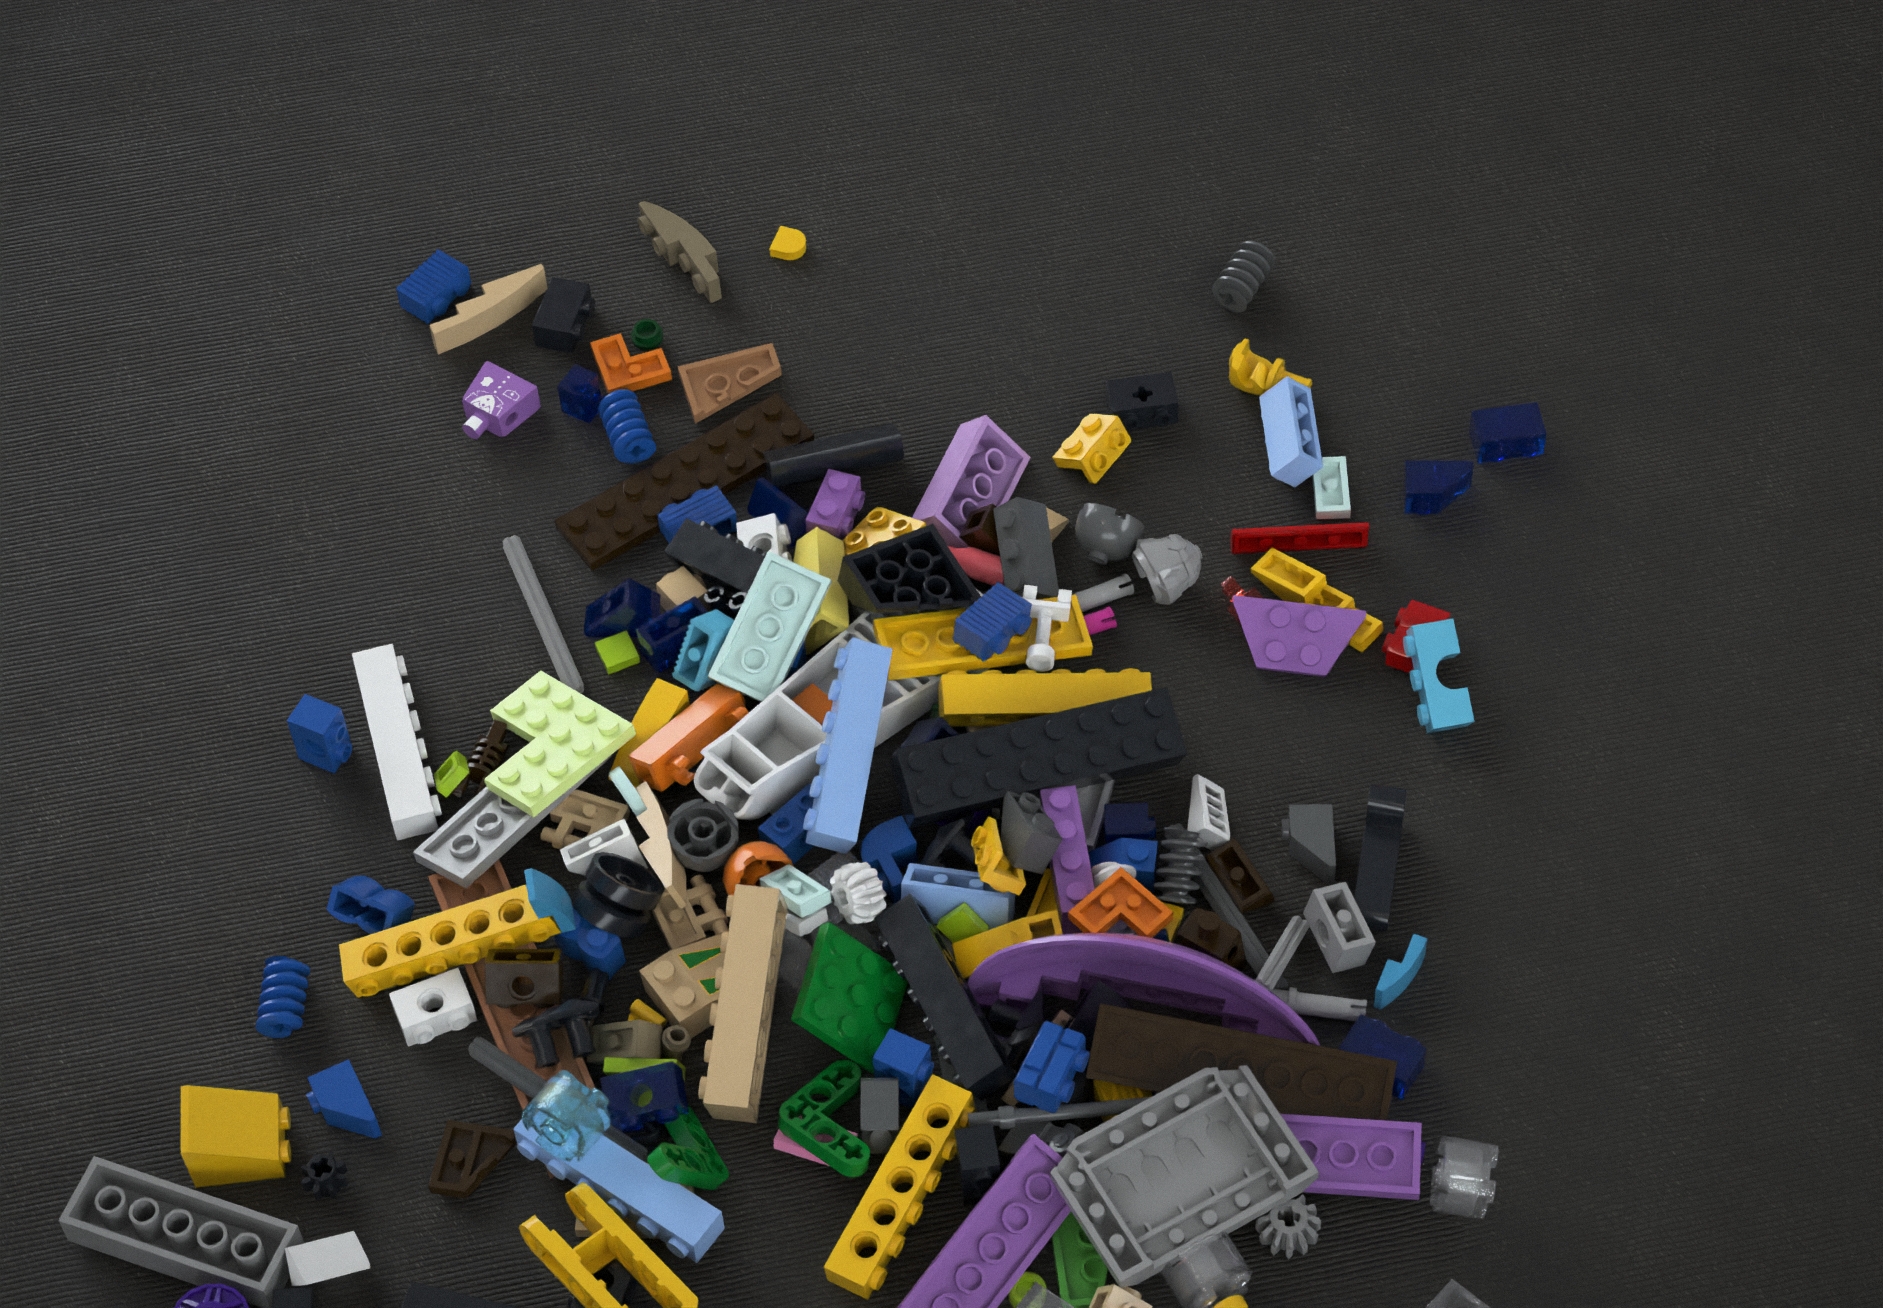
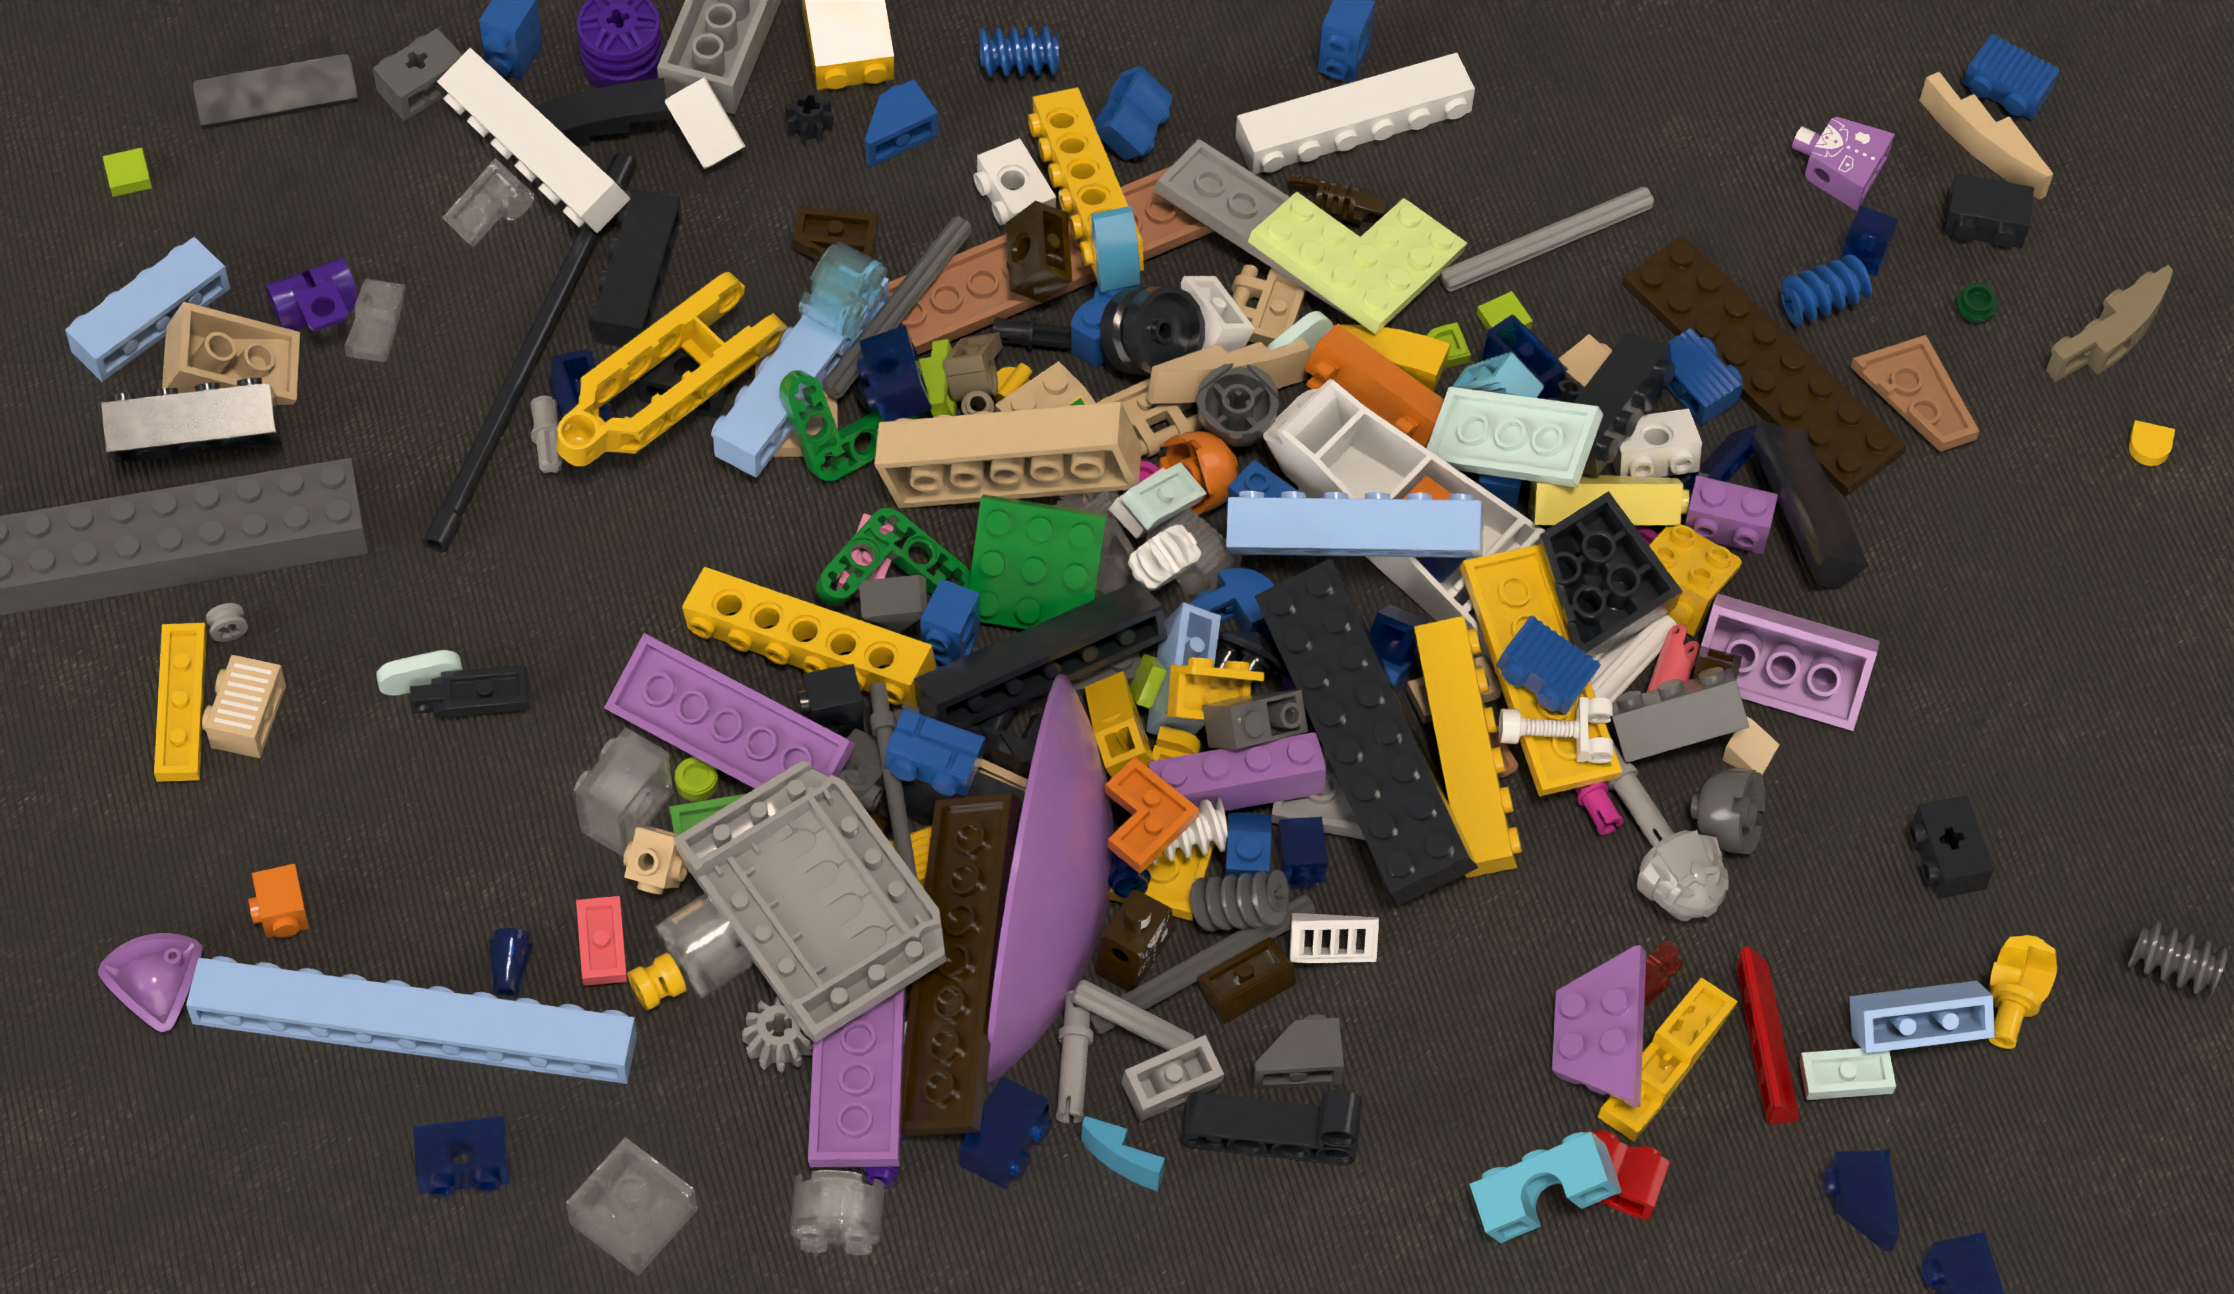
camera: 80 degrees right, 5 degrees up
(451, 773) = (1313, 168): lime tile -> none
(570, 1015) = (995, 303): black connector -> none
(622, 609) = (1555, 314): clear blue slope -> none
(627, 372) = (1914, 286): orange plate -> none
(634, 693) = (1452, 334): none -> lime tile
(1022, 906) = (1177, 740): none -> yellow tile
(1094, 446) = (1874, 797): yellow bracket -> none

